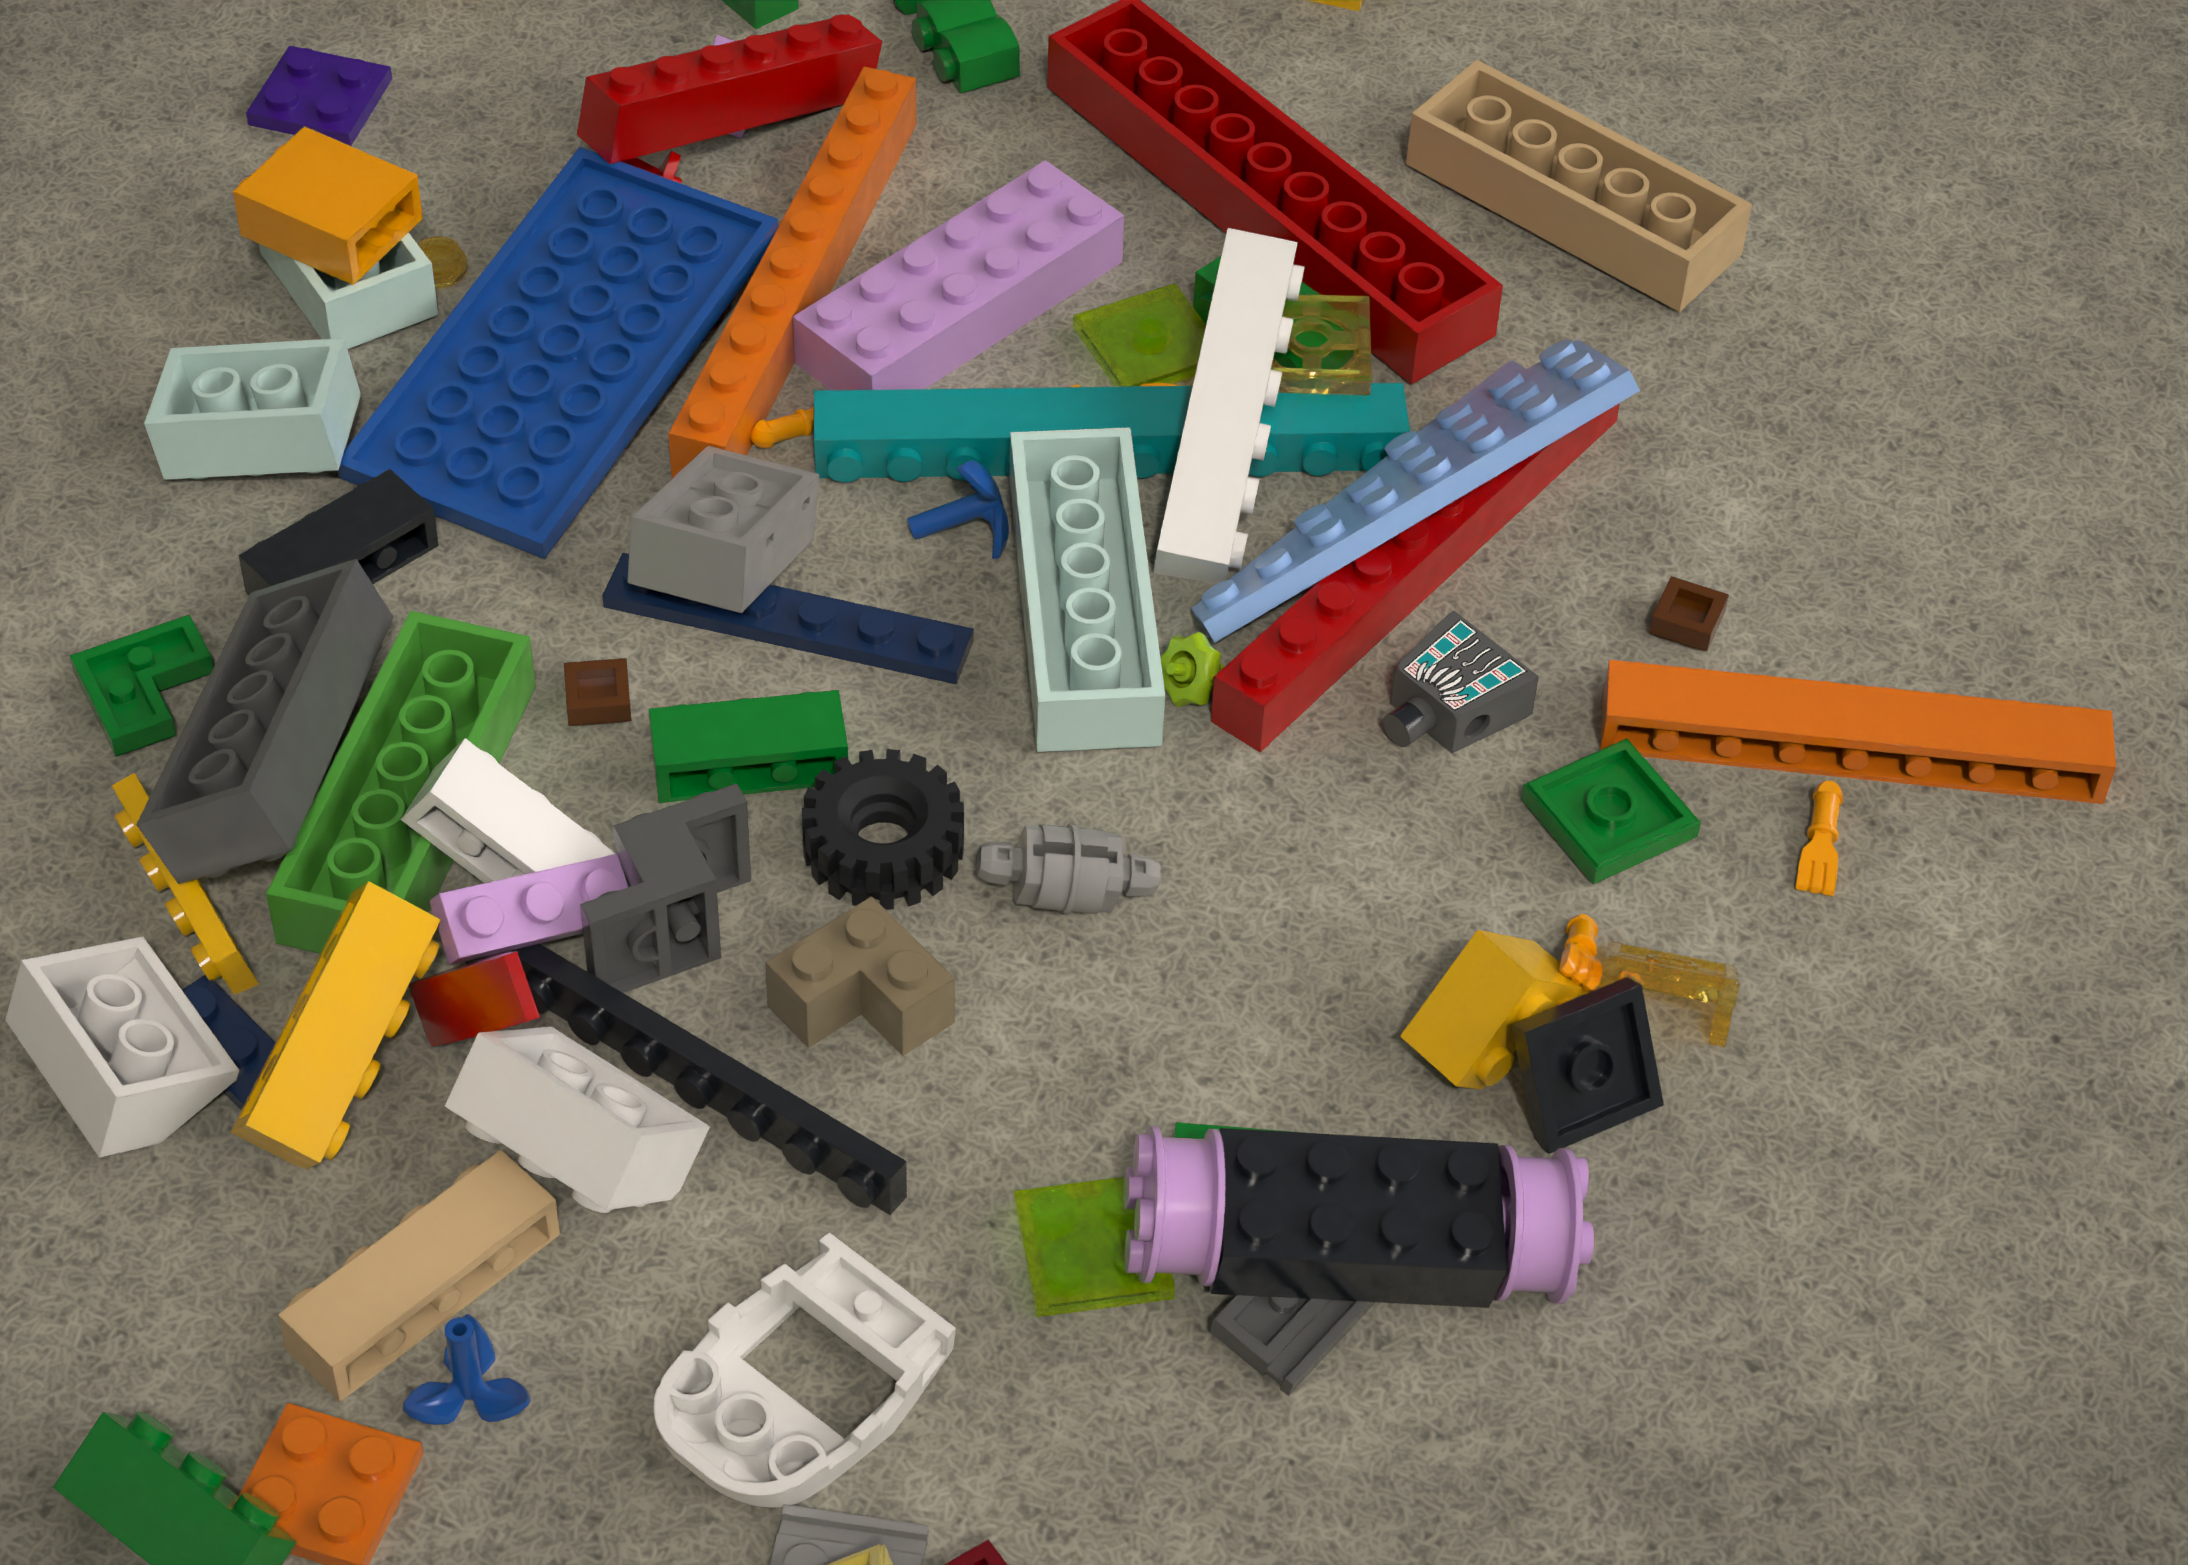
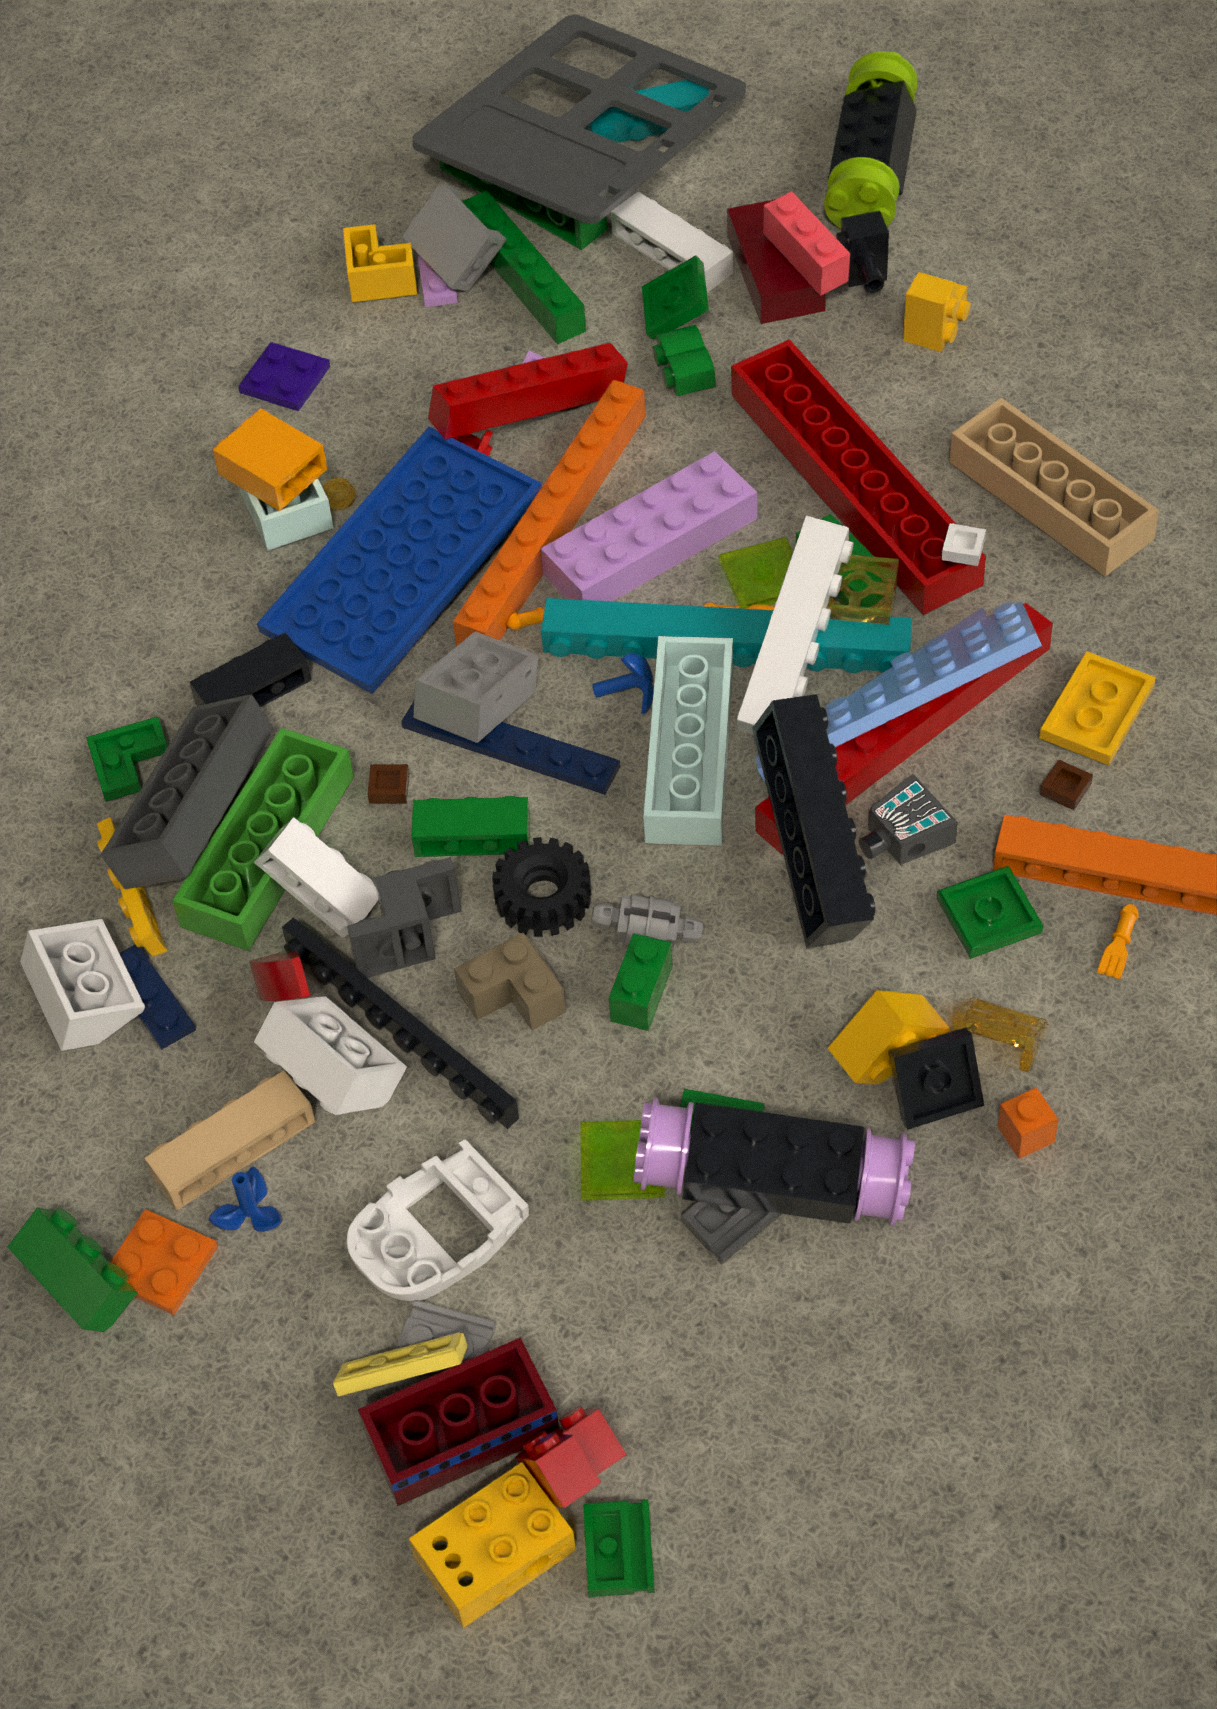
camera: 15 degrees right, 5 degrees up
(253, 409) = (211, 587): light aqua brick -> none
(337, 1027) = (201, 986): yellow brick -> none
(522, 908) = (317, 923): lavender plate -> none
(1074, 961) = (640, 982): none -> green brick
(1190, 669) = (744, 797): lime piece -> none
(1321, 684) = (813, 821): none -> black brick
(1469, 266) = (963, 544): none -> white plate
(1579, 953) = (948, 1005): light orange piece -> none
(1711, 499) = (1097, 708): none -> yellow plate
(1744, 1122) = (1027, 1123): none -> orange brick

